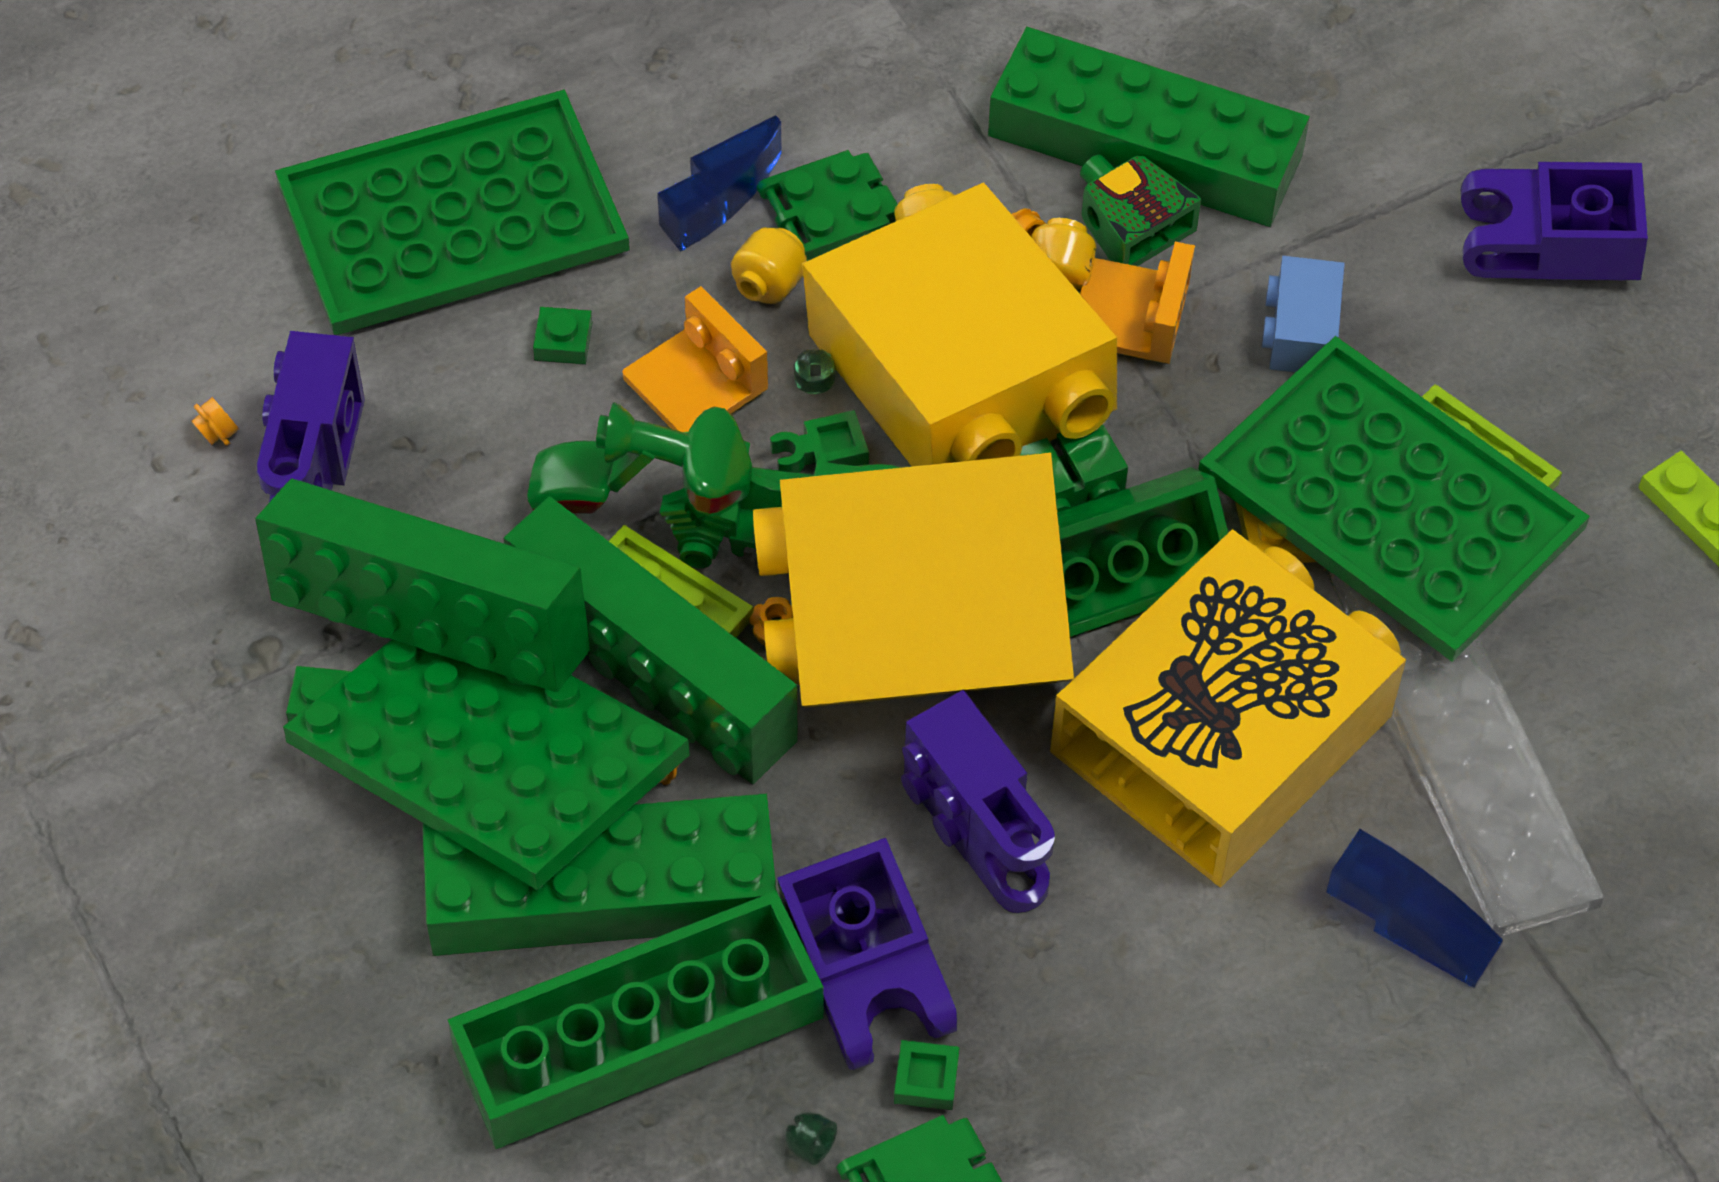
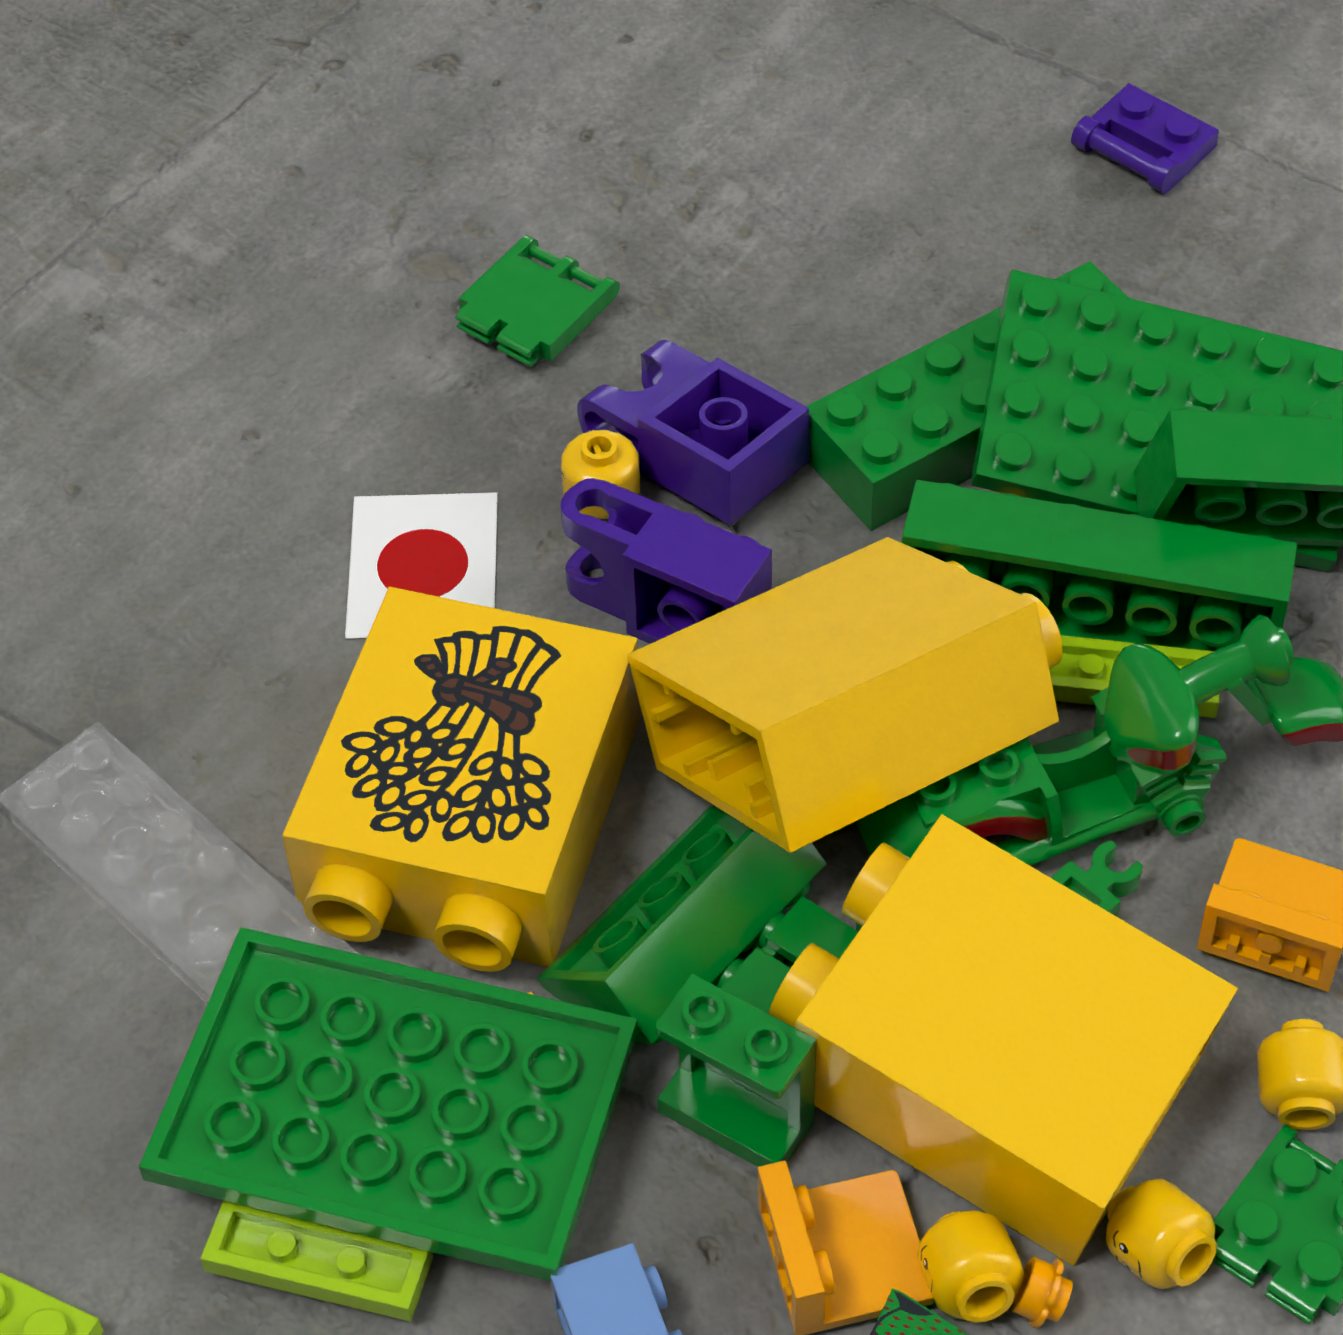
camera: 155 degrees right, 5 degrees down
(214, 1112) = (1146, 137): none -> dark purple plate
(636, 1019) = (868, 281): green brick -> none
(811, 1137) = (659, 300): clear green hinge -> none
(926, 1075) = (580, 373): green plate -> none
(974, 947) = (603, 457): none -> yellow head
(1152, 389) = (740, 1074): none -> green panel
(1158, 974) = (423, 546): none -> white sticker
(1413, 908) = (194, 694): clear blue slope -> none

